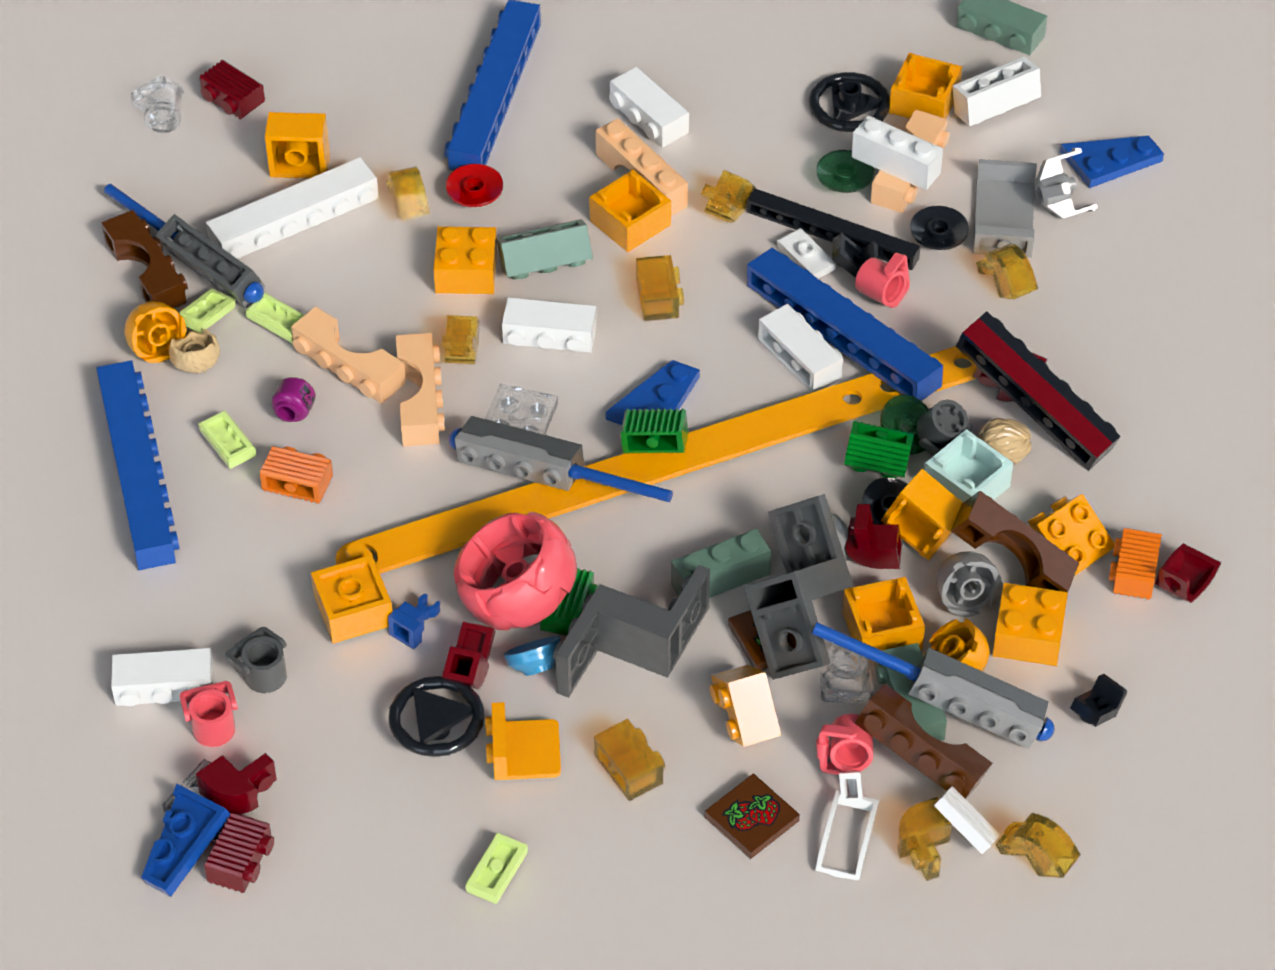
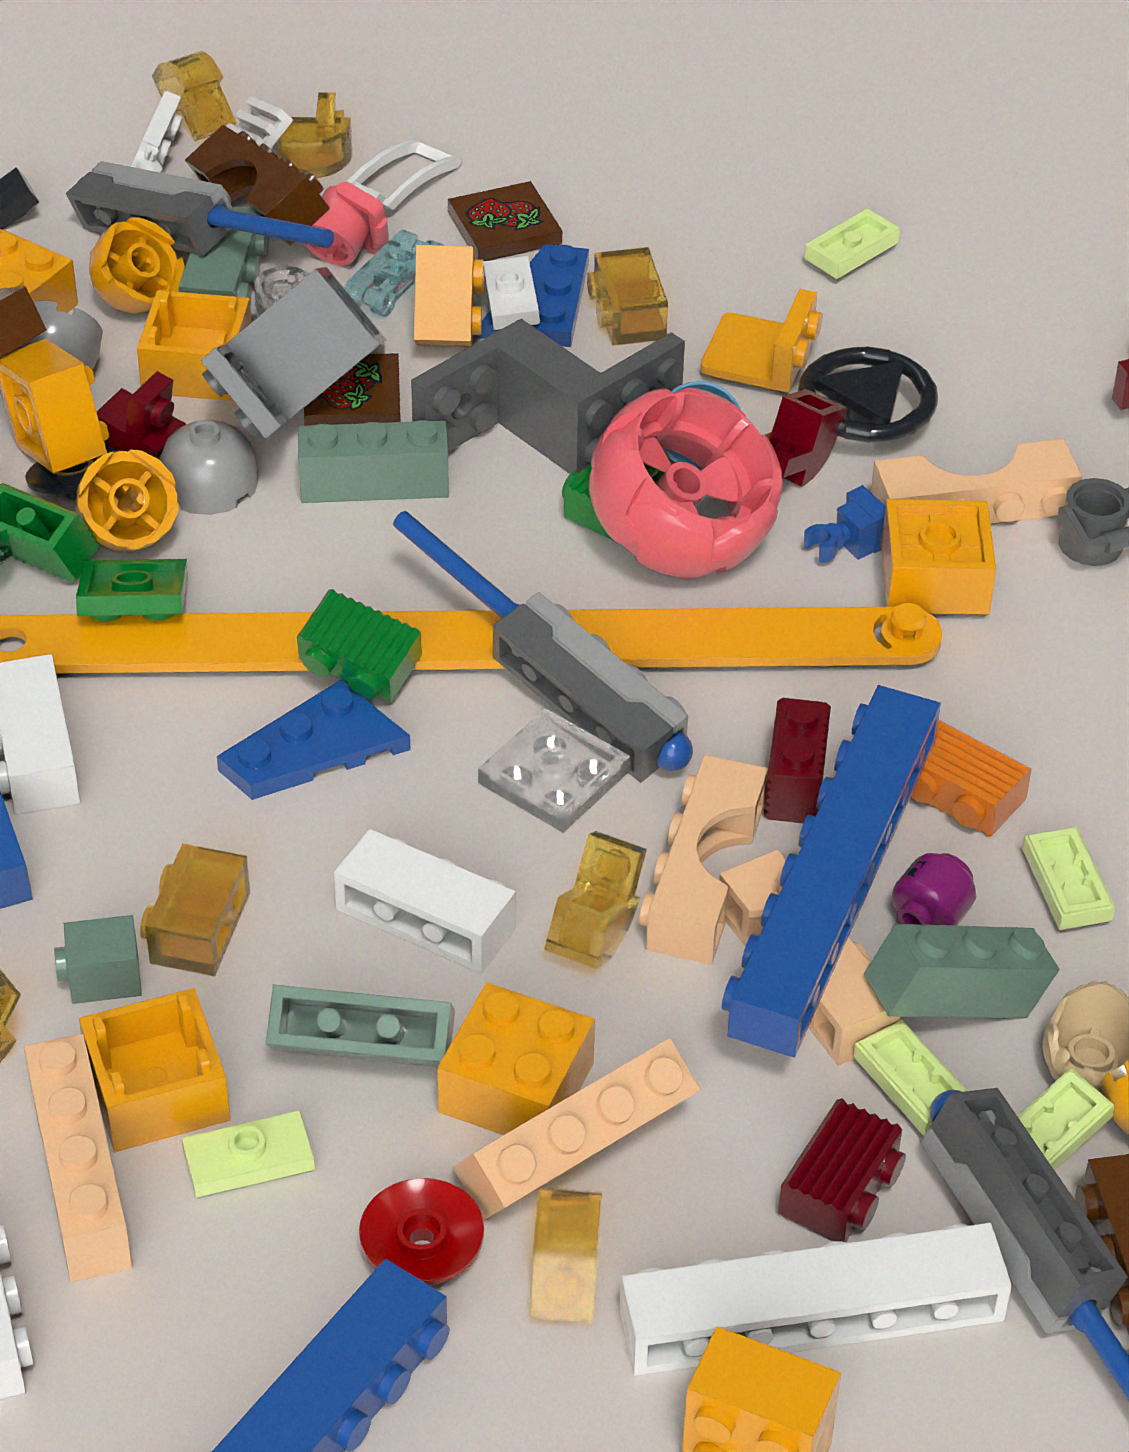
camera: 160 degrees left, 5 degrees down
(265, 344) = (961, 971): none -> sand green brick
(297, 262) = (841, 1172): none -> dark red brick
(342, 368) = (832, 872): none -> blue brick
(379, 654) = (1024, 489): none -> light nougat arch
(390, 452) = (796, 759): none -> dark red brick
(402, 256) = (576, 1128): none -> light nougat arch
(568, 203) = (248, 1154): none -> yellowish green plate
(688, 753) = (558, 285): none -> blue wing
(689, 251) = (99, 959): none -> sand green brick
(706, 727) = (511, 291): none -> white plate
(799, 737) = (390, 270): none -> clear light blue plate
(804, 439) = (132, 588): none -> green plate
(843, 479) = (127, 500): none -> light orange cylinder
(1030, 786) = (162, 125): none -> white hinge

